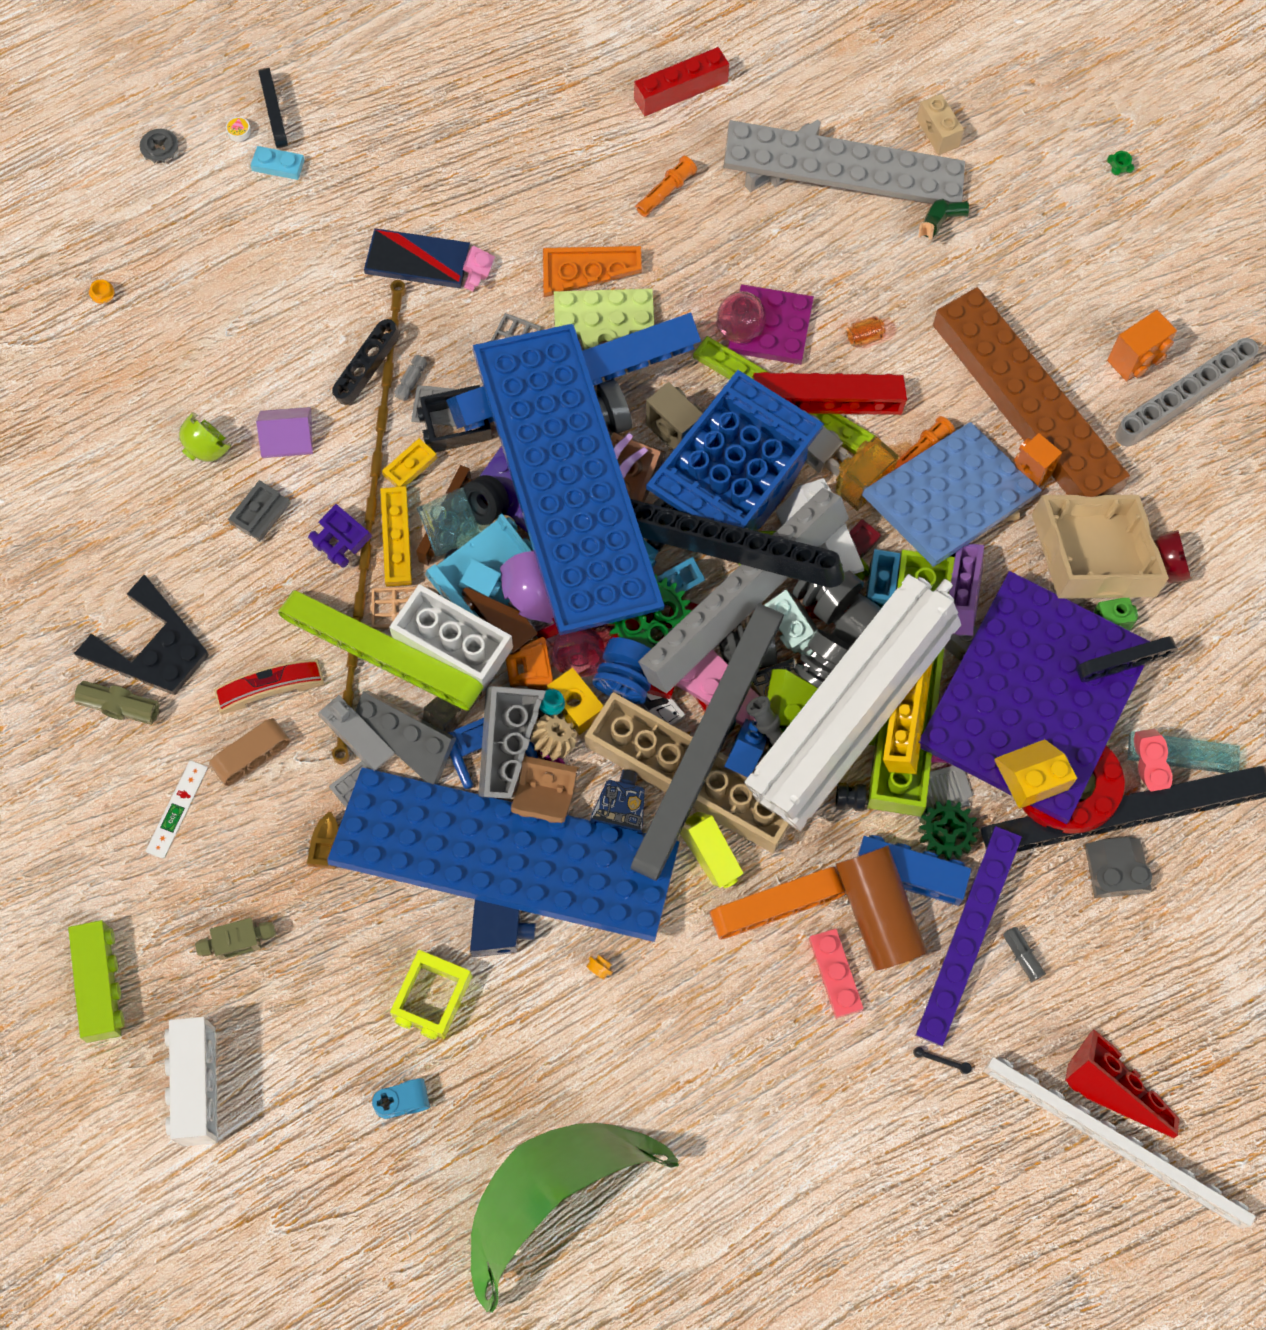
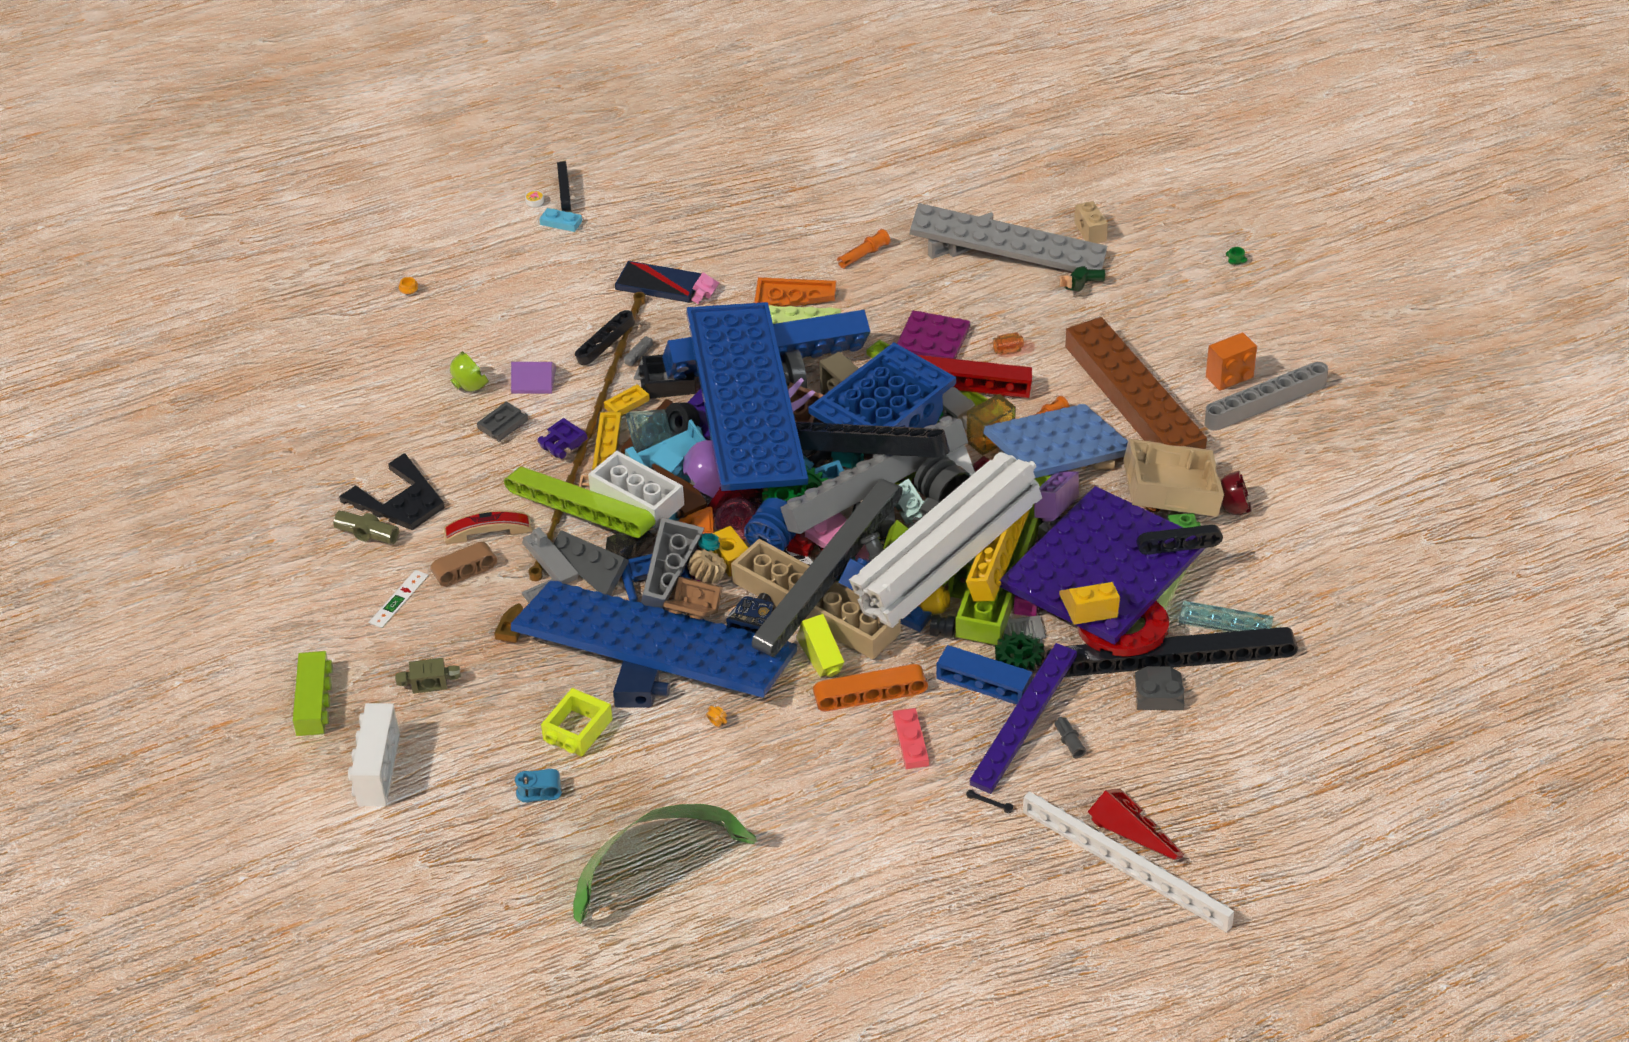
camera: 10 degrees right, 25 degrees down
(160, 137) = (476, 204): dark grey gear -> none
(681, 81) = (887, 187): red brick -> none
(741, 317) = (907, 324): clear pink cylinder -> none
(881, 908) = (953, 689): dark orange brick -> none
(1037, 459) = (1132, 421): orange brick -> none
(1152, 763) = (1194, 608): coral brick -> none

